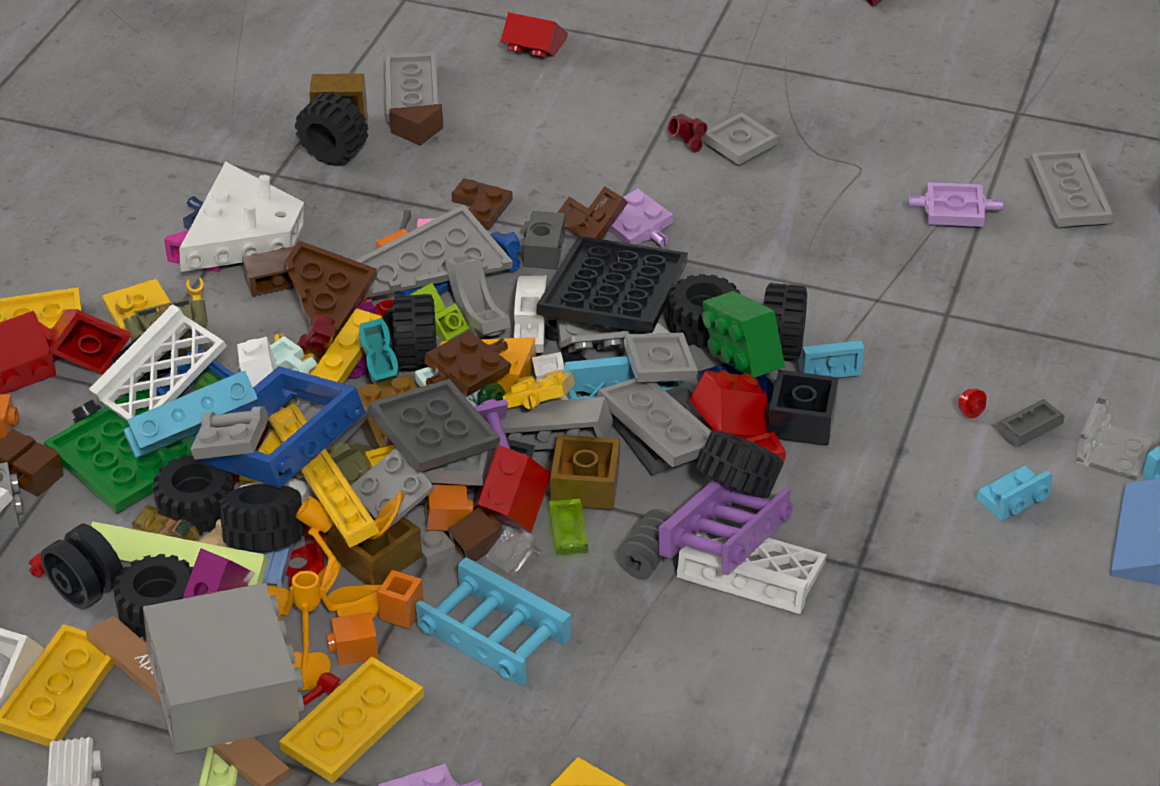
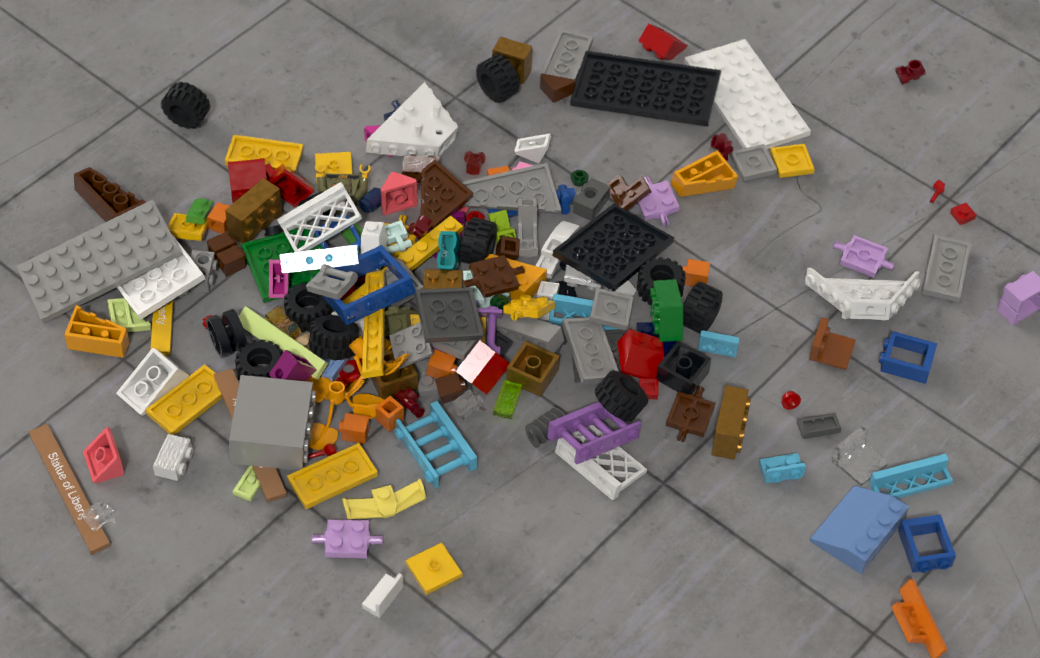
camera: 20 degrees right, 10 degrees up
(46, 389) = (254, 211): none -> pearl gold brick
(130, 466) = (278, 281): none -> dark pink slope
(224, 325) = (371, 200): none -> dark blue brick
(262, 305) = (398, 193): none -> coral slope
(348, 240) = (474, 162): none -> clear red plate
(421, 567) = (408, 400): none -> dark red plate
(427, 199) = (533, 147): none -> white slope
(454, 729) = (385, 502): none -> light yellow plate
(460, 322) = (509, 247): none -> reddish brown brick
(484, 200) = (572, 158): reddish brown plate -> none
(510, 221) = (579, 177): none -> dark green plate
(543, 90) = (646, 88): none -> black plate
(682, 68) = (750, 97): none -> white plate
(687, 168) = (704, 176): none -> light orange wedge
(748, 281) = (696, 272): none -> orange brick
(791, 122) = (792, 160): none -> yellow plate
(845, 463) = (690, 414): none -> reddish brown plate
(913, 452) = (731, 422): none -> pearl gold brick
(984, 323) = (831, 347): none -> dark orange bracket
(986, 249) = (863, 297): none -> white piece
(998, 101) = (939, 187): none -> red hand
(1047, 123) = (963, 213): none -> red plate
(1093, 319) = (906, 369): none -> blue window

